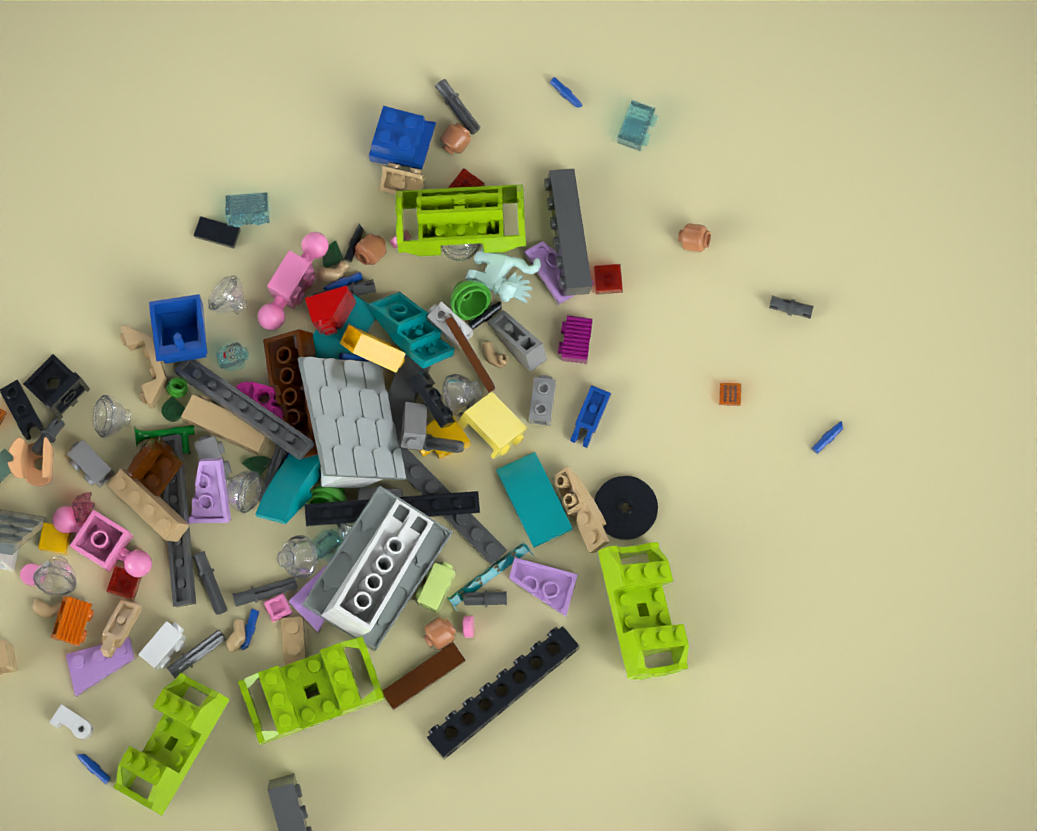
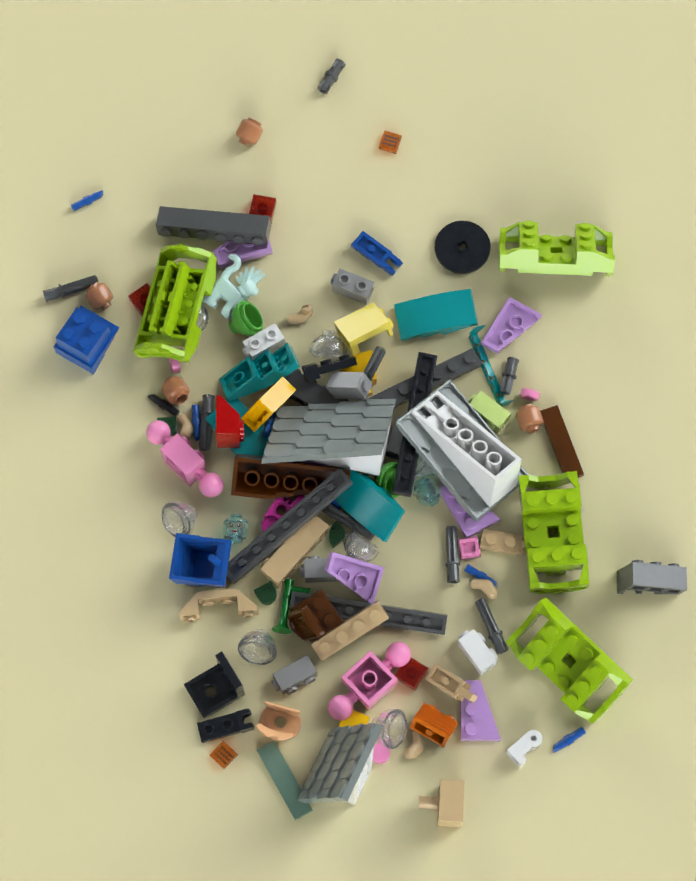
camera: 80 degrees left, 5 degrees down
(50, 432) = (258, 706): dark grey axle -> none
(82, 507) = (335, 687): clear pink plate -> none
(177, 387) = (248, 584): bright green plate -> none
(210, 583) = (431, 599): dark grey axle -> none
(217, 232) = (116, 517): black tile -> none
(247, 209) = (105, 482): clear light blue brick -> none
(298, 557) = (431, 509): clear piece -> none
(396, 179) = (122, 351): tan bracket -> none
(469, 352) = (295, 328): reddish brown tile -> none
(485, 316) = (258, 304): black piece -> none
(518, 340) = (294, 291): light grey slope -> none
(556, 636) = (568, 321): black brick -> none
(576, 339) = (307, 246): magenta brick -> none
(581, 505) = (455, 278): tan slope -> none
(636, 125) = (137, 150): clear light blue brick -> none
(828, 437) = (448, 79): blue piece -> none

